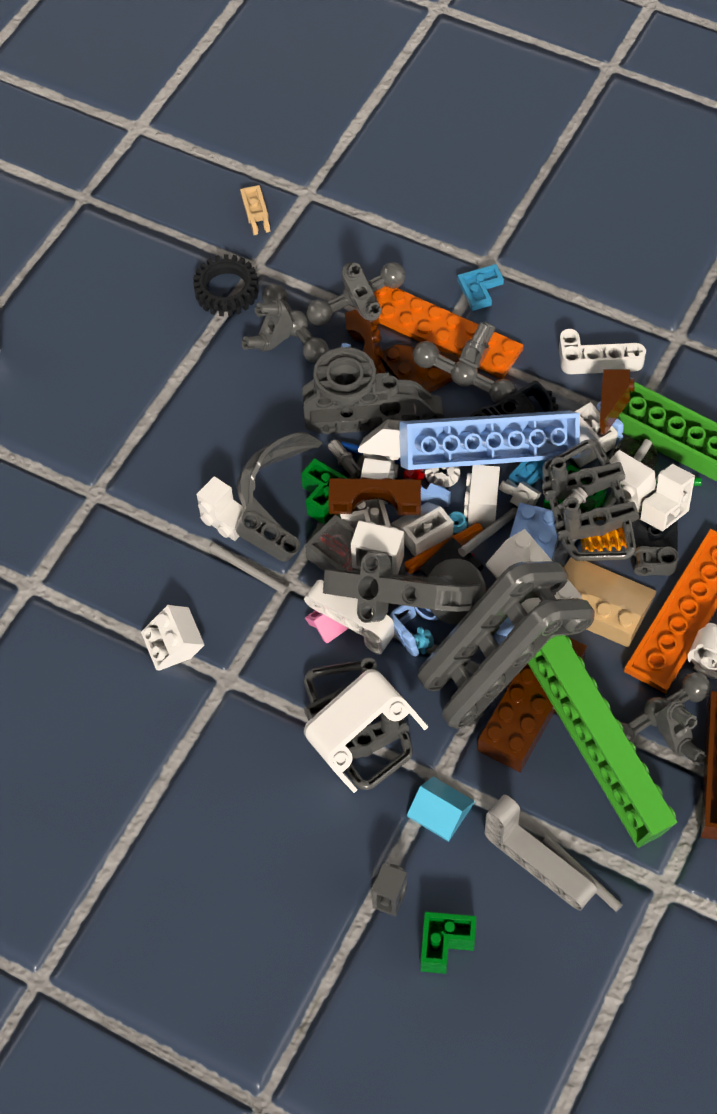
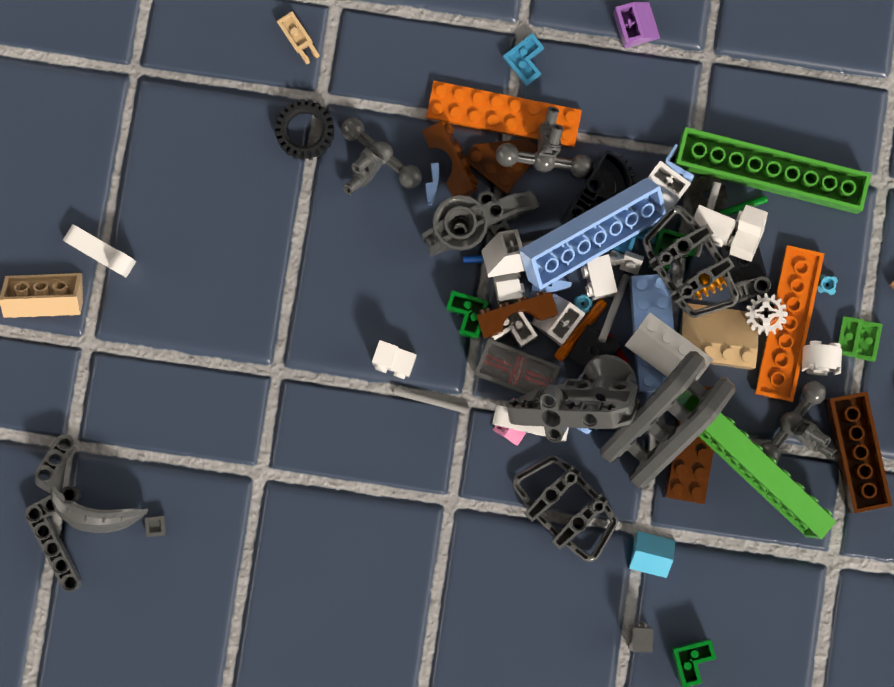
camera: 25 degrees left, 25 degrees up
(172, 637) = (396, 484): white slope -> none
(253, 512) = (407, 325): dark grey piece -> none
(344, 459) = (471, 273): light grey axle -> none
(350, 714) = (574, 519): white windscreen -> none
(357, 293) = (426, 110): dark grey connector -> none
(377, 539) = (539, 367): white brick -> none
(534, 856) = (739, 573): light grey beam -> none
(577, 493) = (679, 271): light grey pin -> none
(594, 358) = (651, 100): white beam -> none
(602, 892) = (771, 570): light grey bar -> none
(609, 283) = (635, 23): none -> medium lavender slope
(615, 395) = (680, 151): reddish brown slope -> none
(663, 585) = (774, 314): none -> white gear

